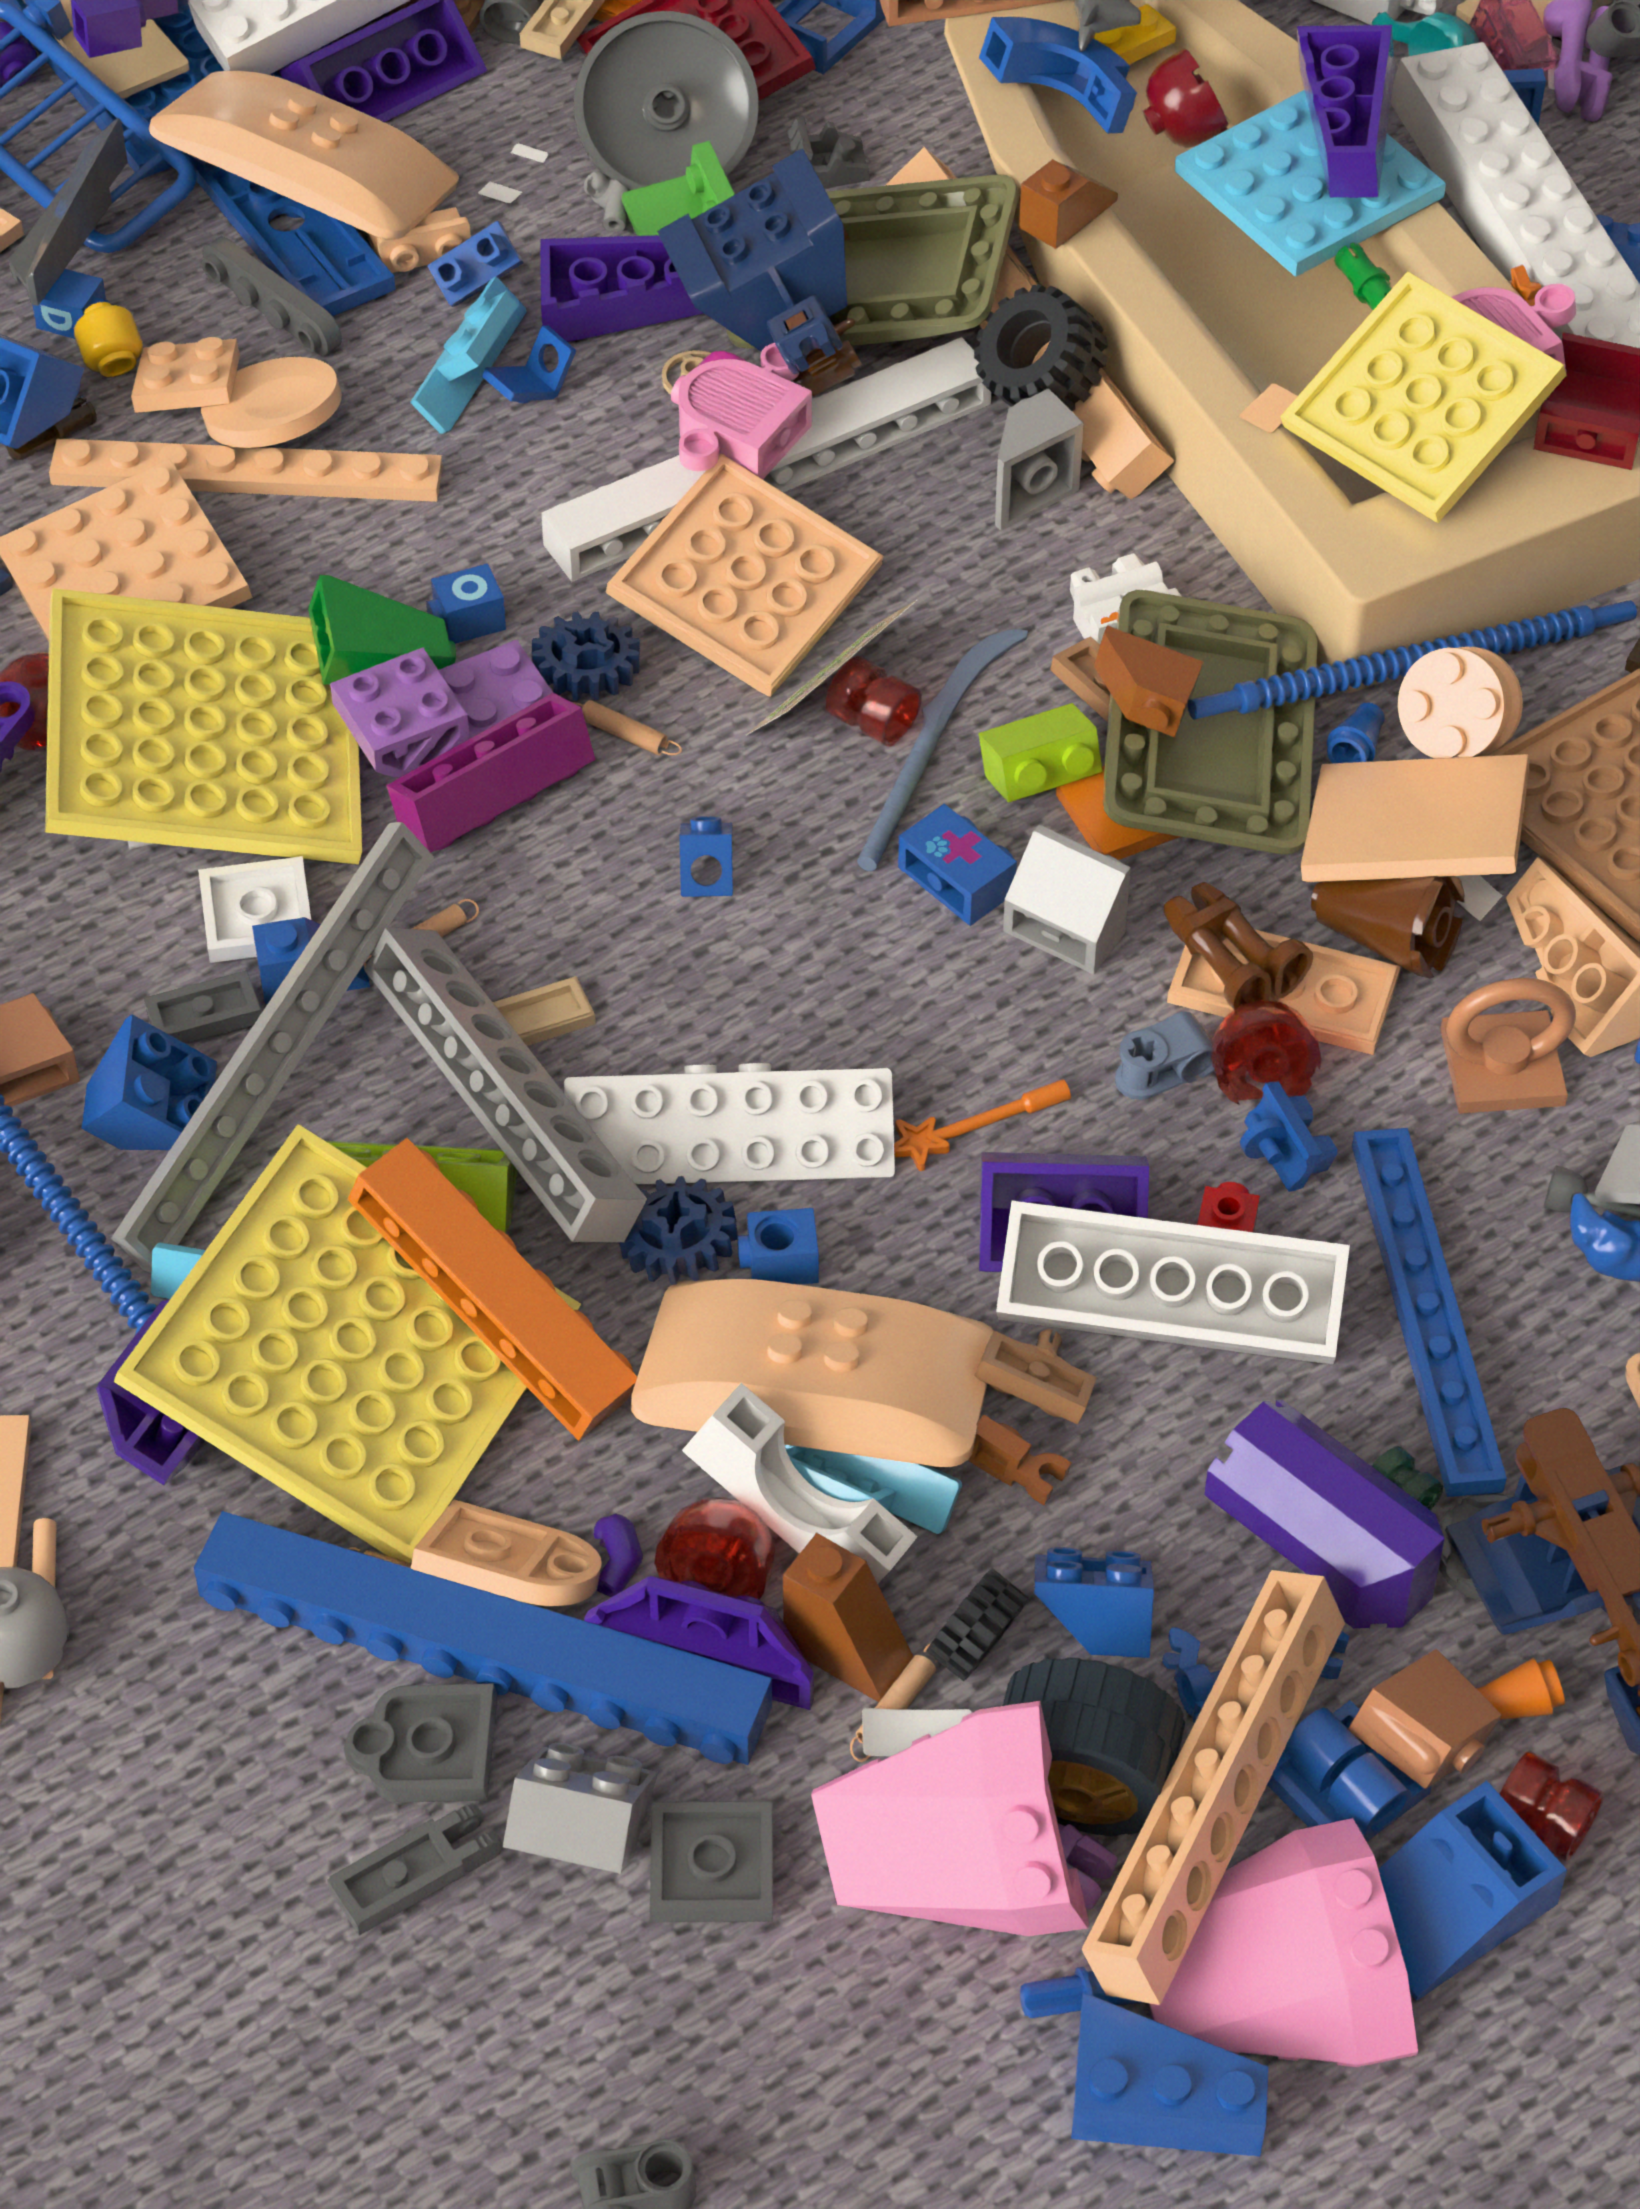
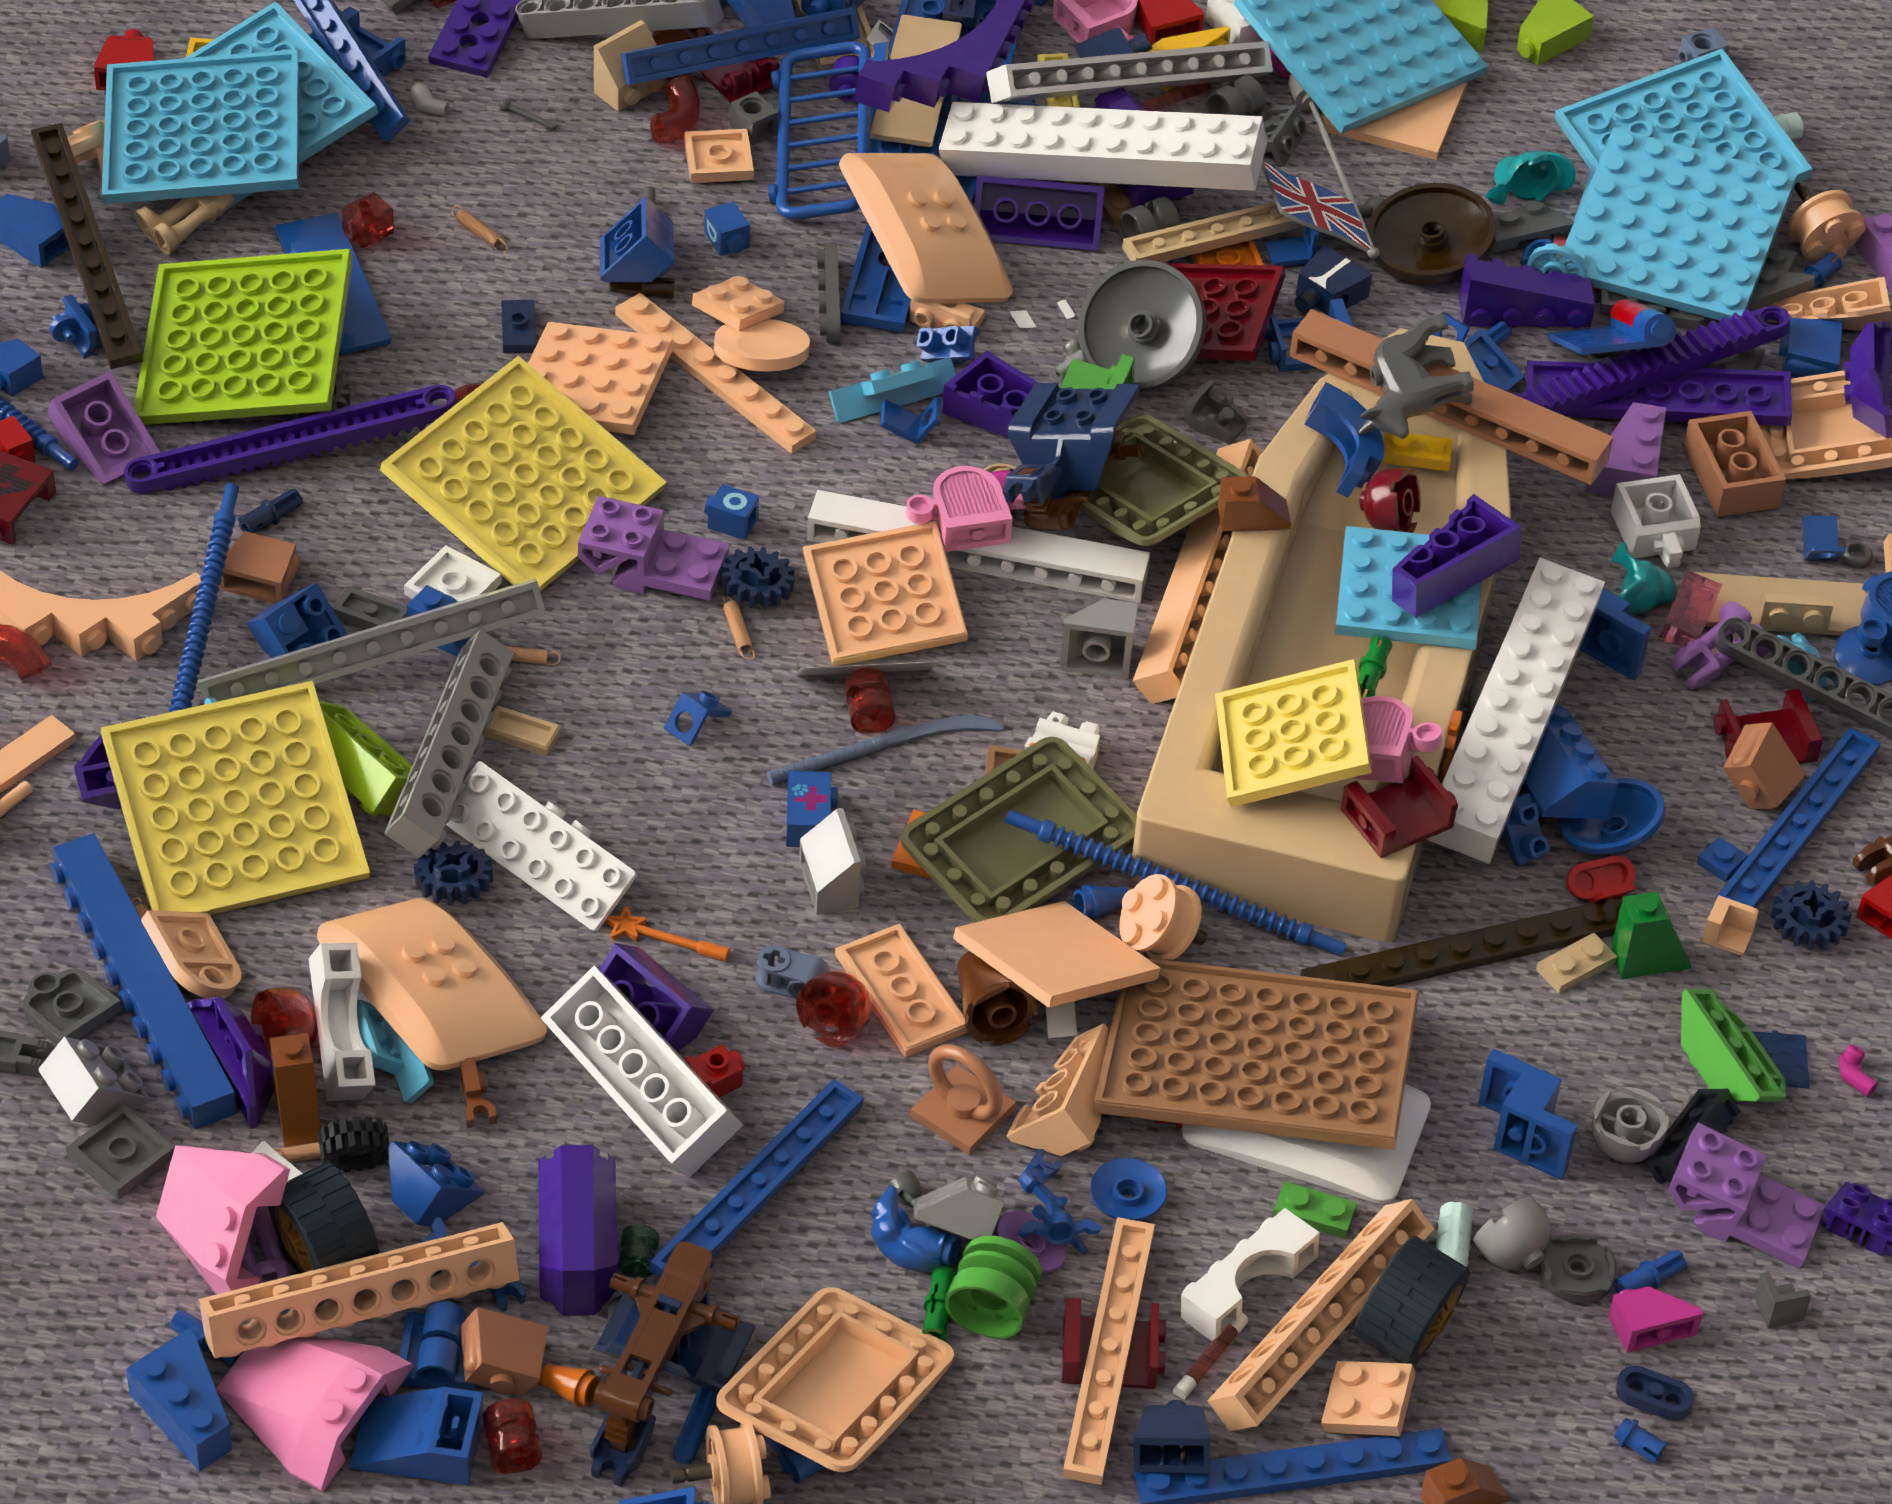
camera: 40 degrees right, 5 degrees down
(70, 214) = (768, 183): dark grey wedge -> none
(108, 339) = (720, 258): yellow head -> none
(363, 629) = (660, 485): green slope -> none
(492, 772) = (635, 599): magenta brick -> none
(493, 1288) = (323, 823): orange brick -> none
(624, 1551) = (256, 983): dark purple arm -> none
(786, 1230) = (492, 918): blue brick -> none
(1022, 329) = (1165, 583): black tyre -> none
(1036, 1374) = (533, 1065): medium nougat plate -> none
(1040, 752) = (916, 783): lime brick -> none
(1147, 679) = (997, 785): dark orange slope -> none
(1219, 918) = (894, 930): reddish brown piece -> none
(1268, 408) = (1217, 686): light nougat sticker -> none
(1282, 1136) = (808, 1045): blue hips -> none

